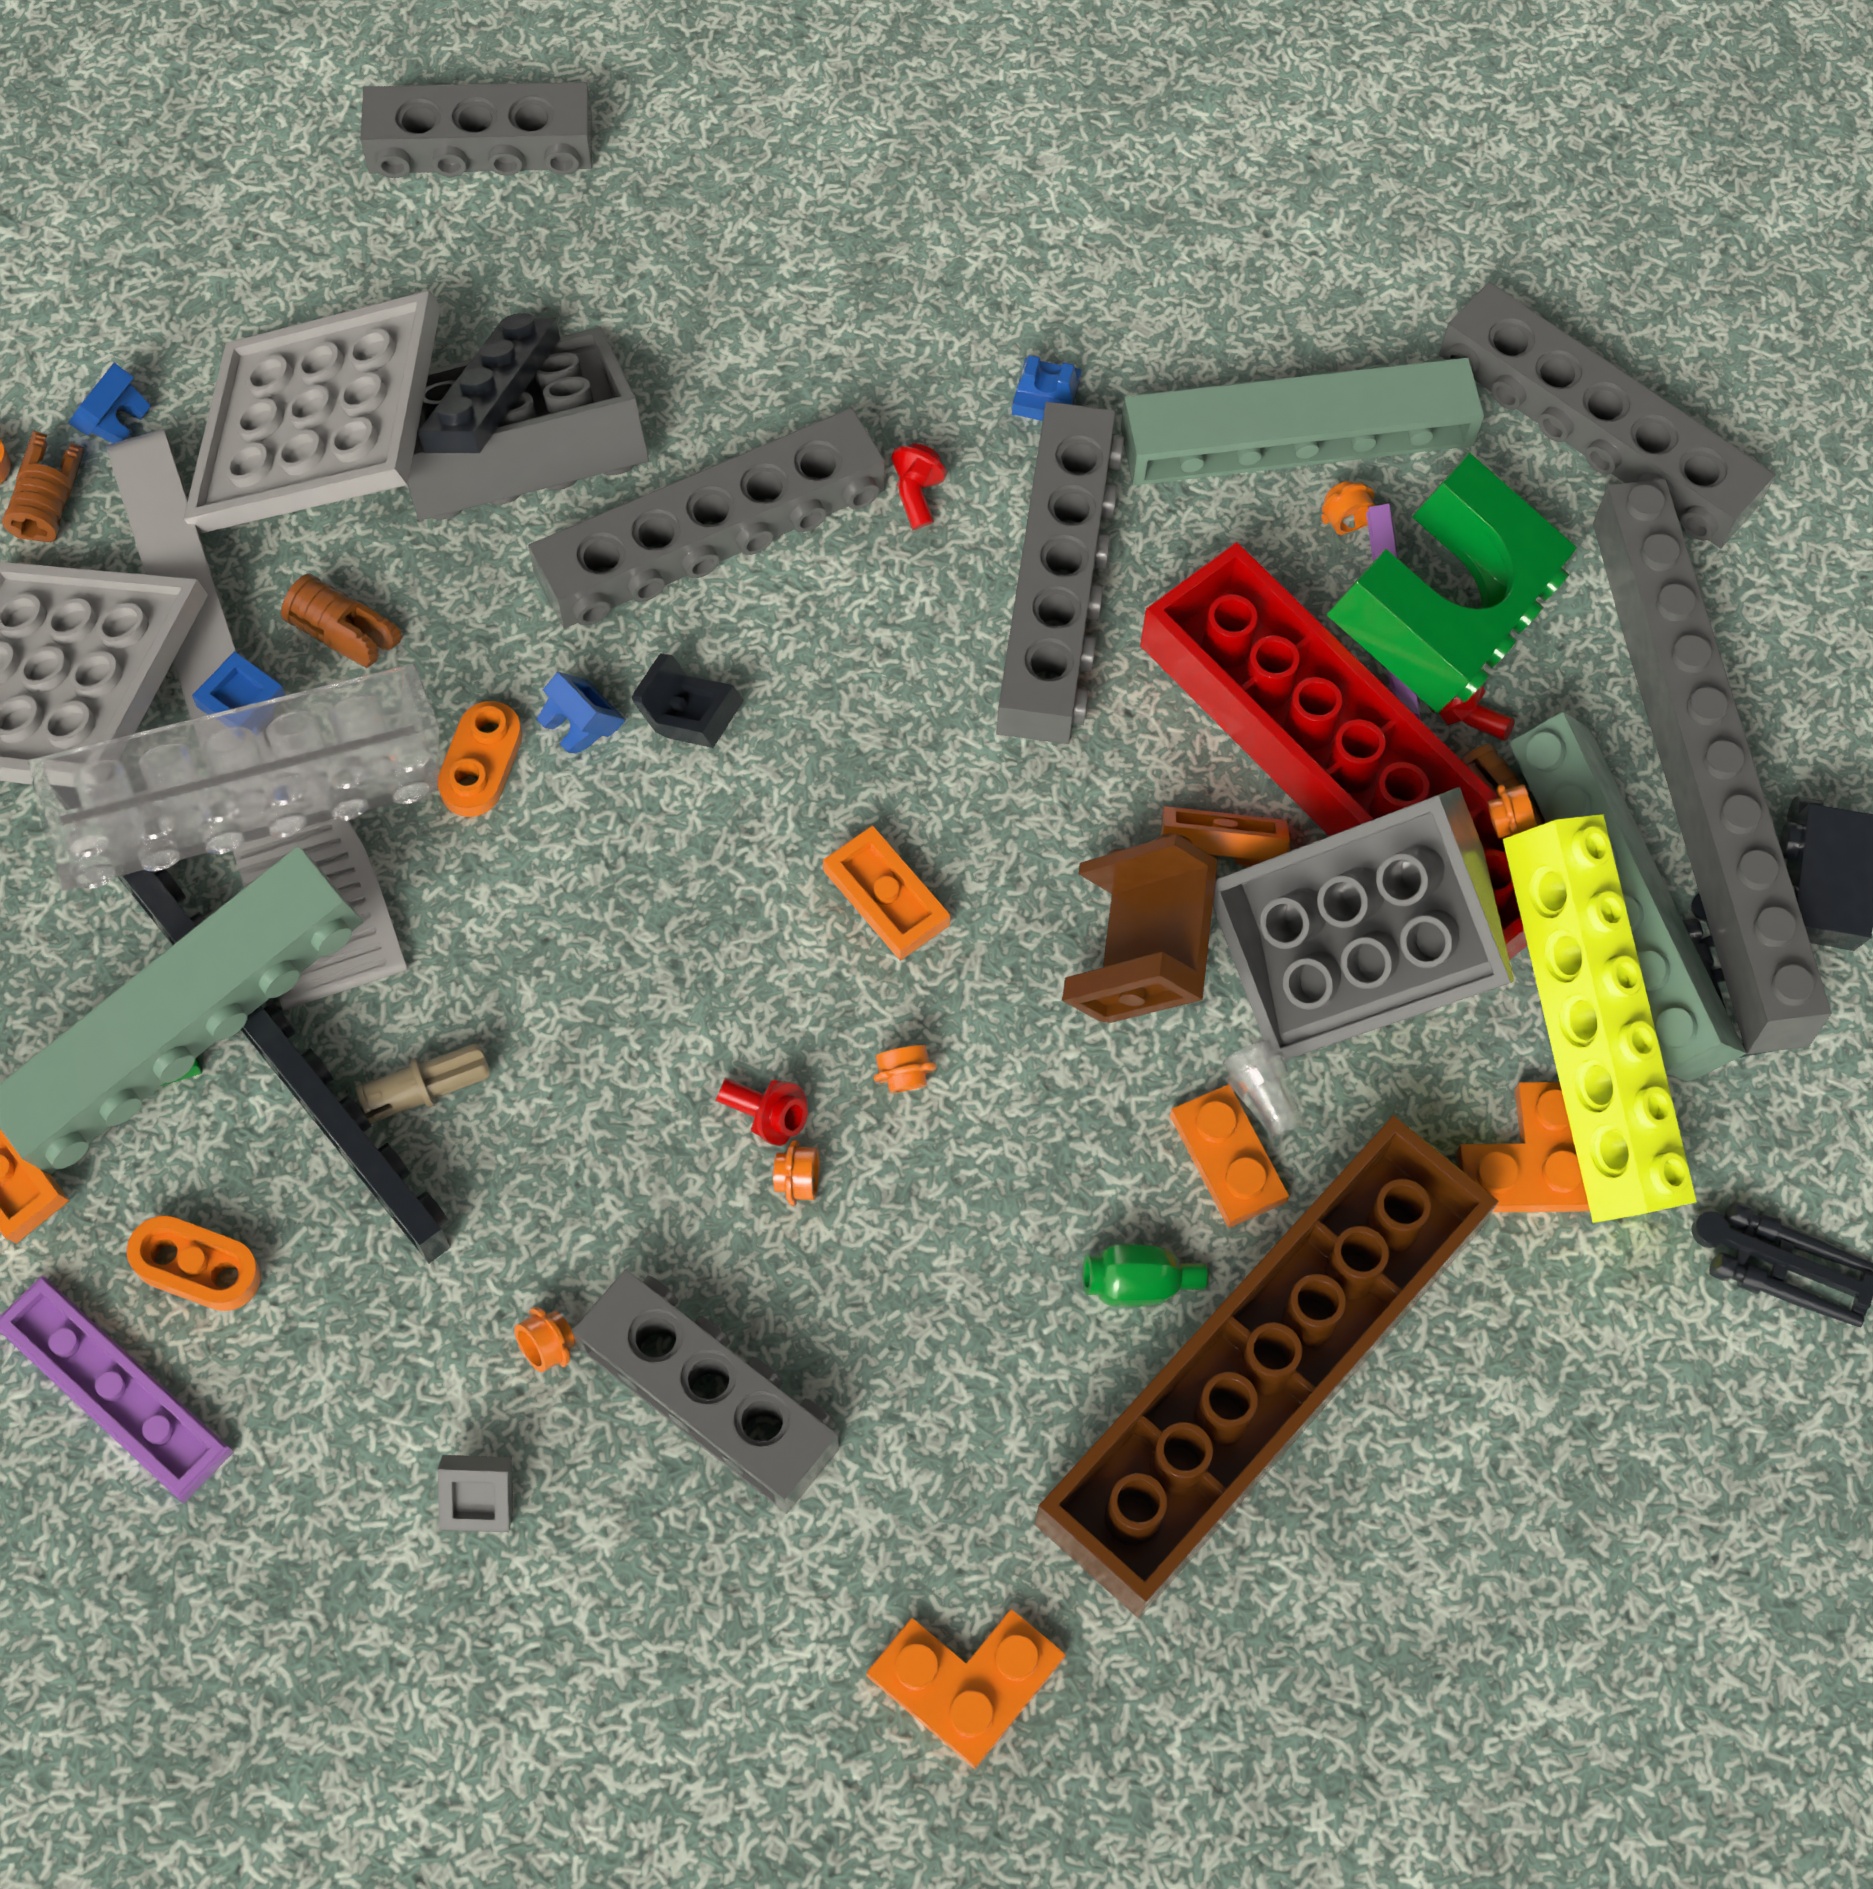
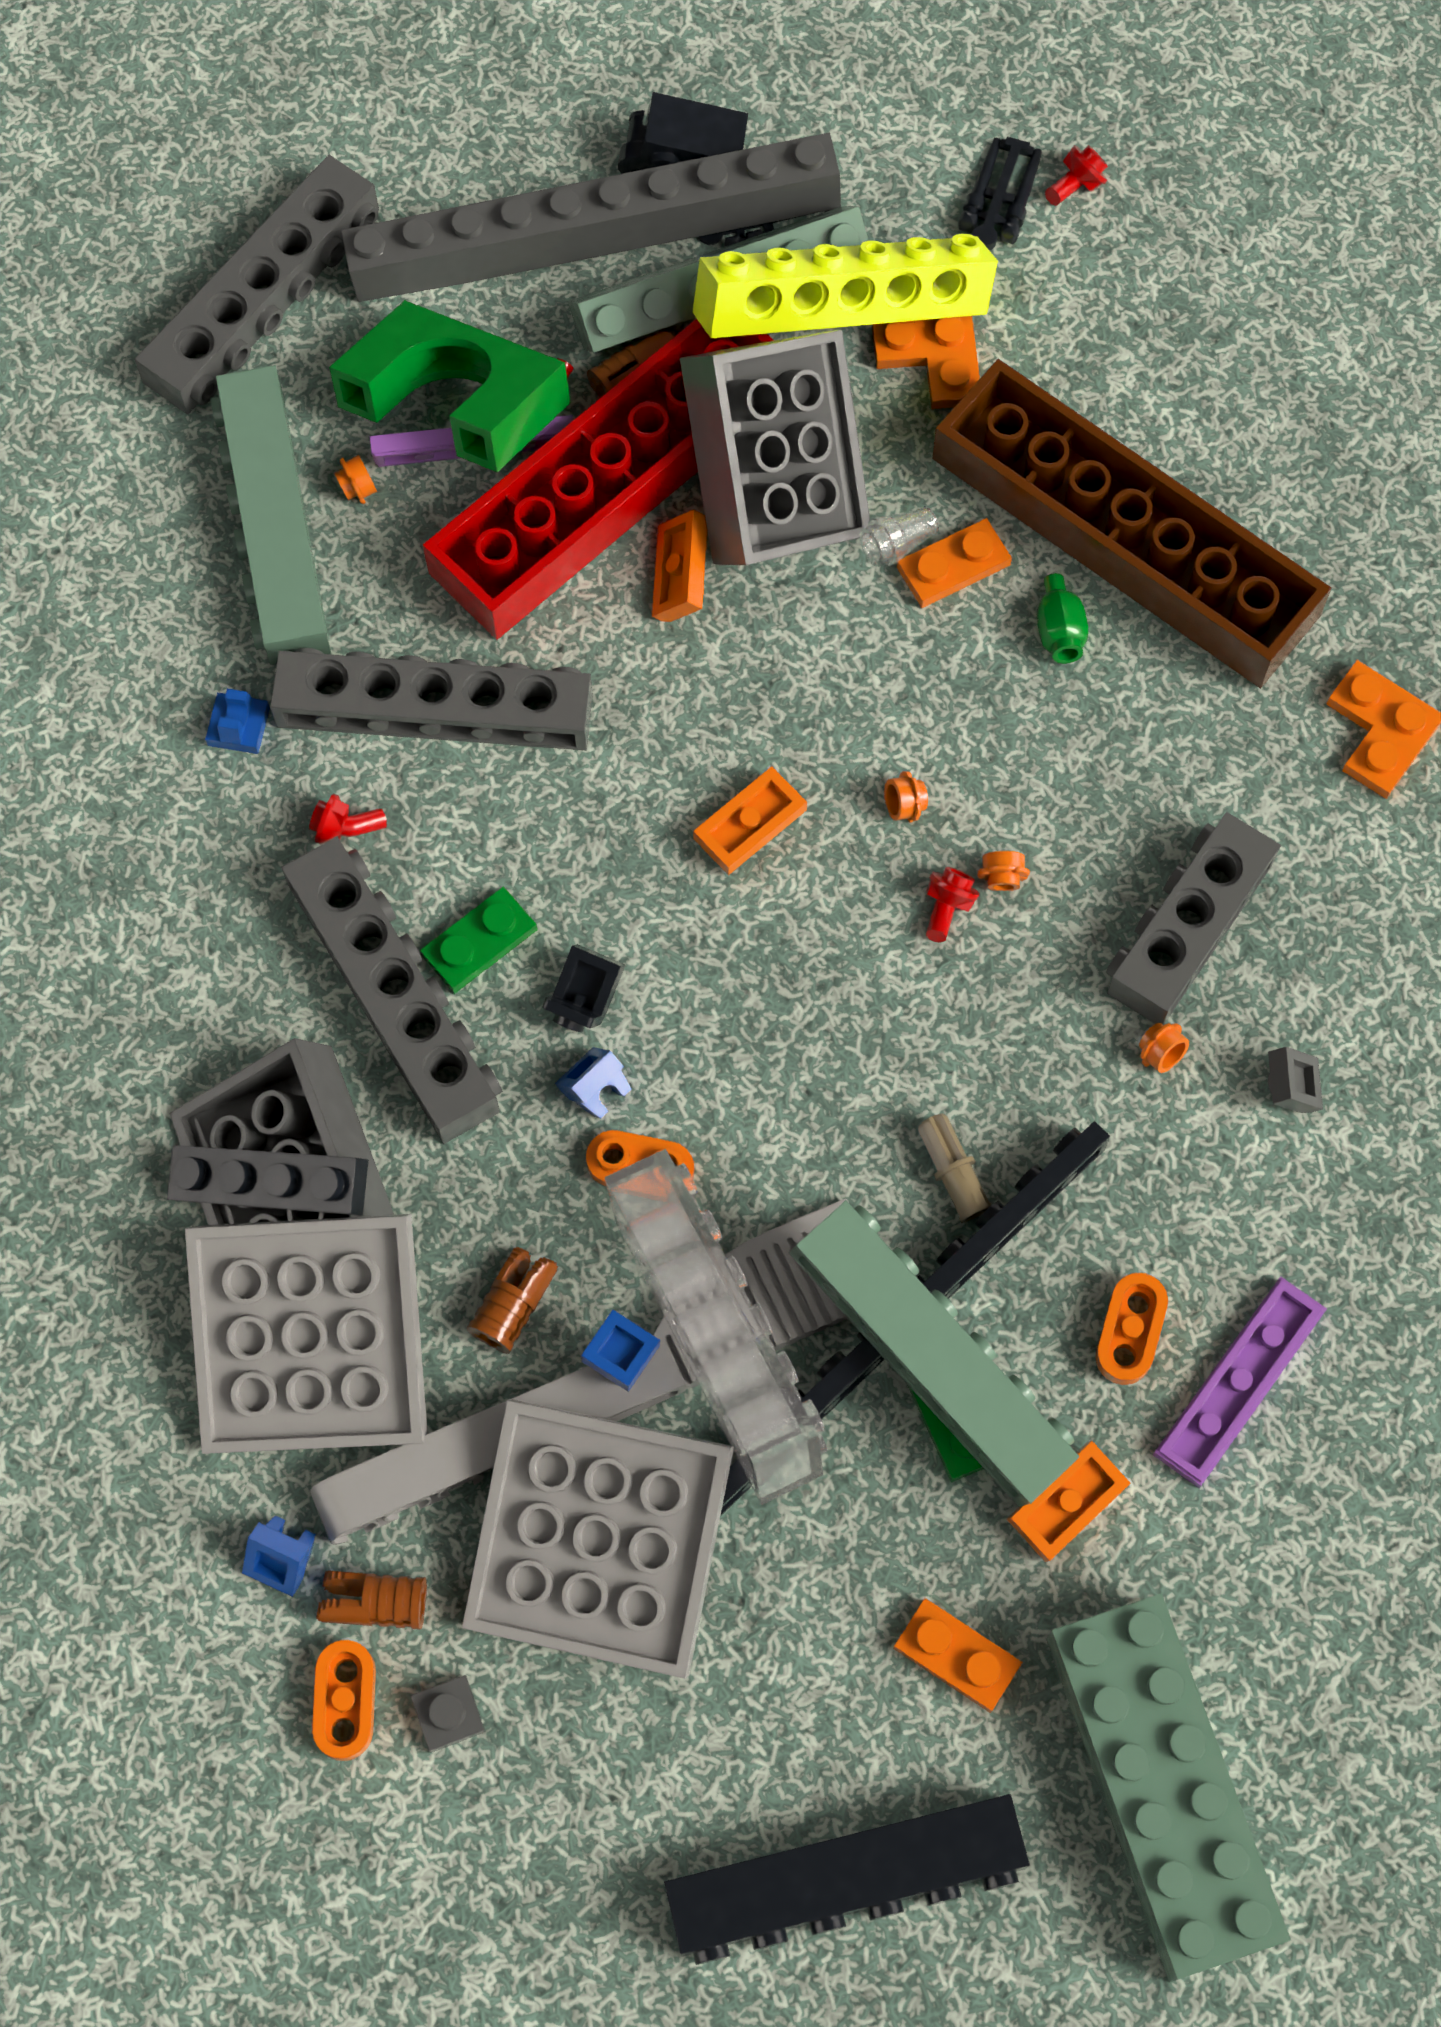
camera: 90 degrees left, 5 degrees up
(766, 612) = (478, 940): none -> green plate
(1154, 930) = (782, 609): reddish brown panel -> none
(1511, 811) = (679, 336): orange plate -> none
(1829, 1376) = (1085, 170): none -> red plate

